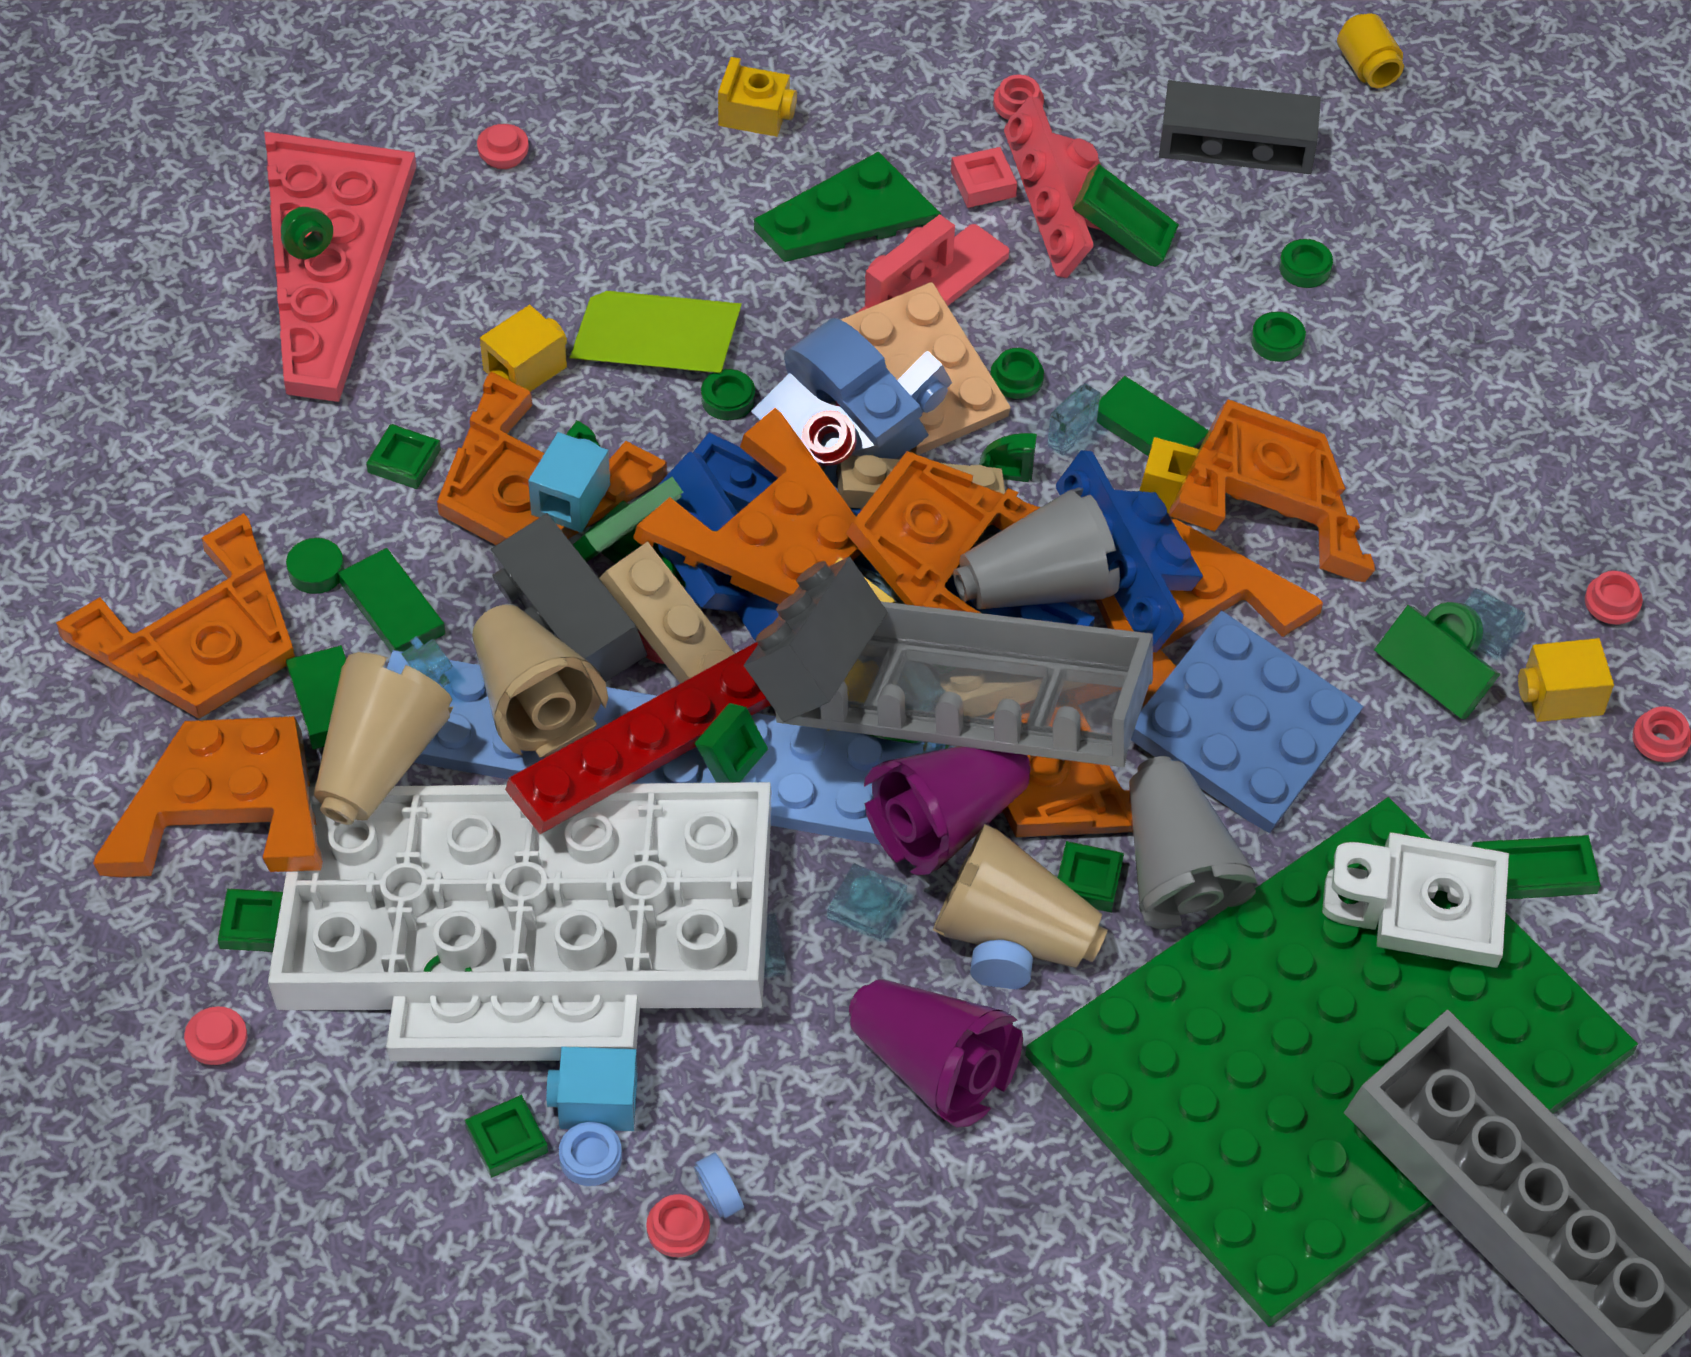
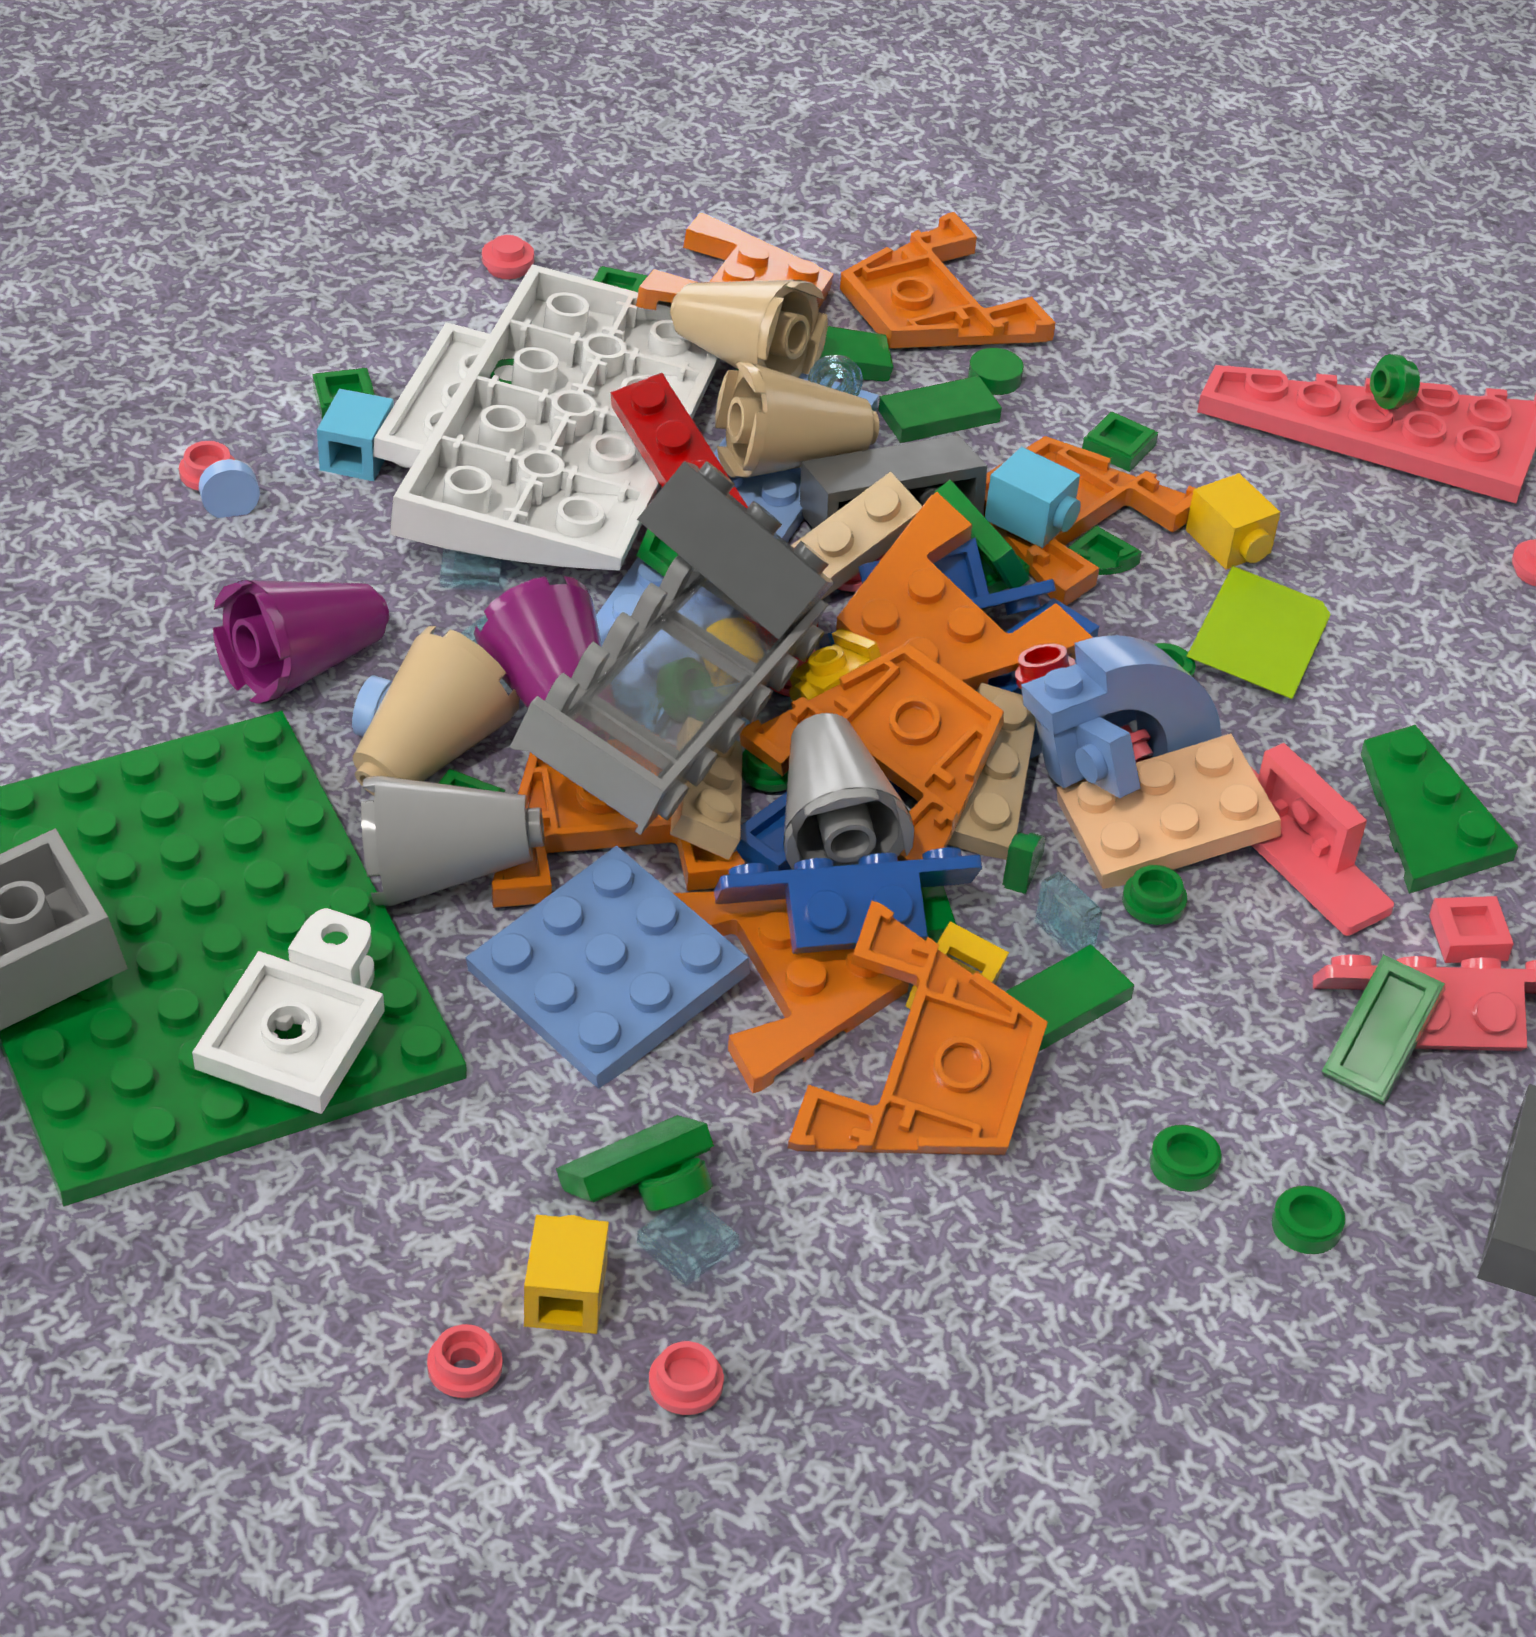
camera: 100 degrees right, 10 degrees down
(590, 1154) = (298, 436): light blue tile -> none
(1548, 866) = (330, 1182): green tile -> none

